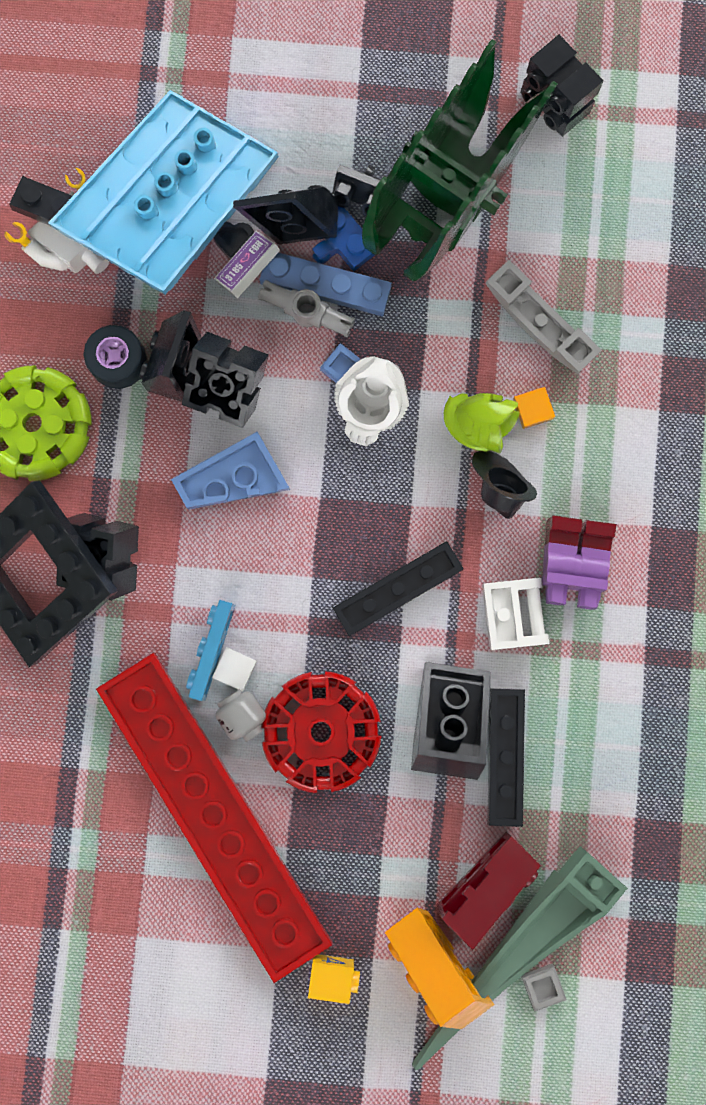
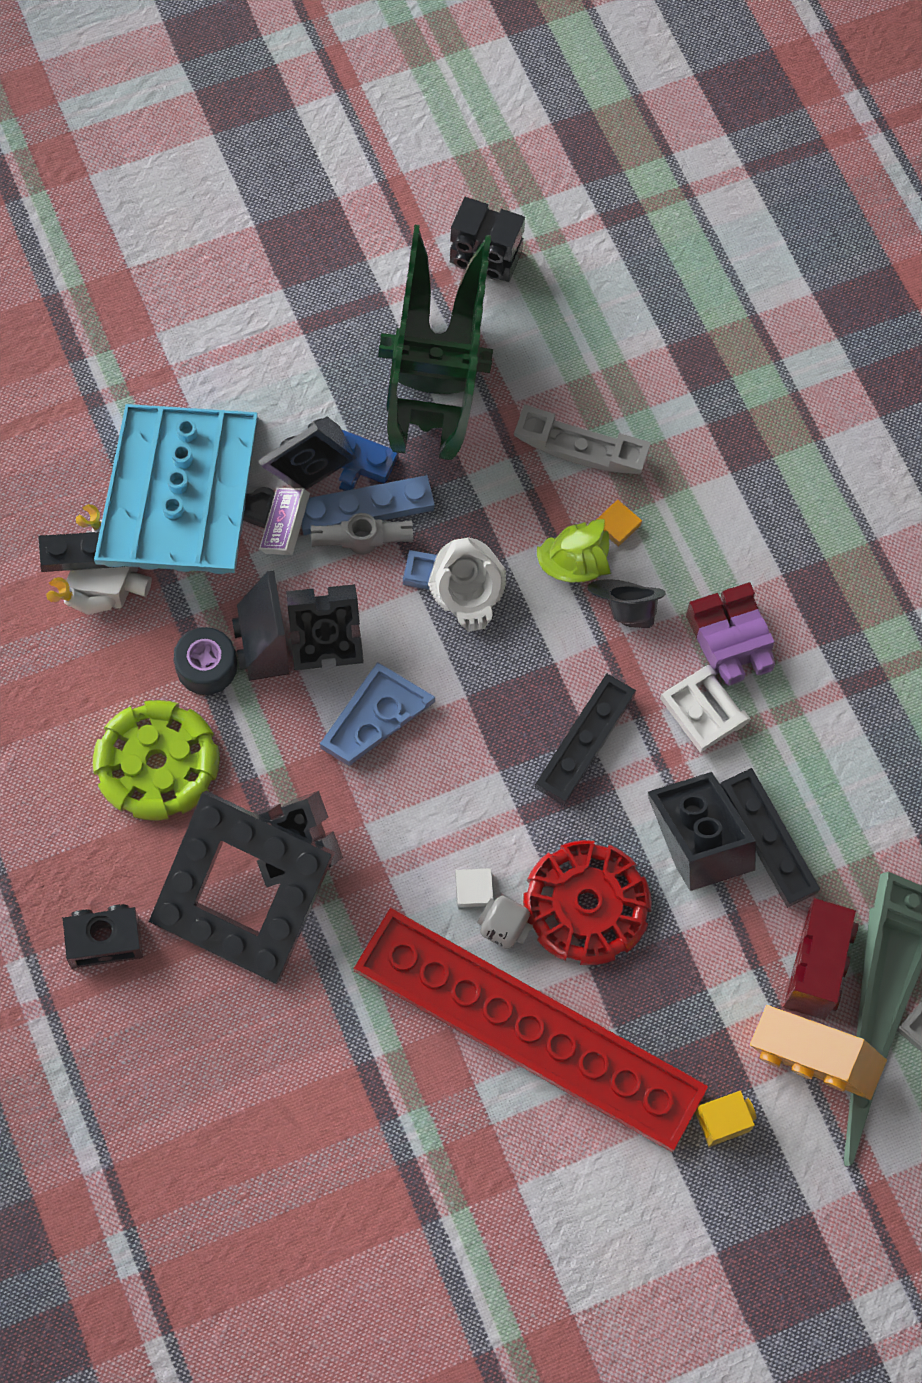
camera: 30 degrees left, 15 degrees down
(210, 650) = (442, 879): dark azure plate -> none
(355, 187) = (357, 407): black hips -> none

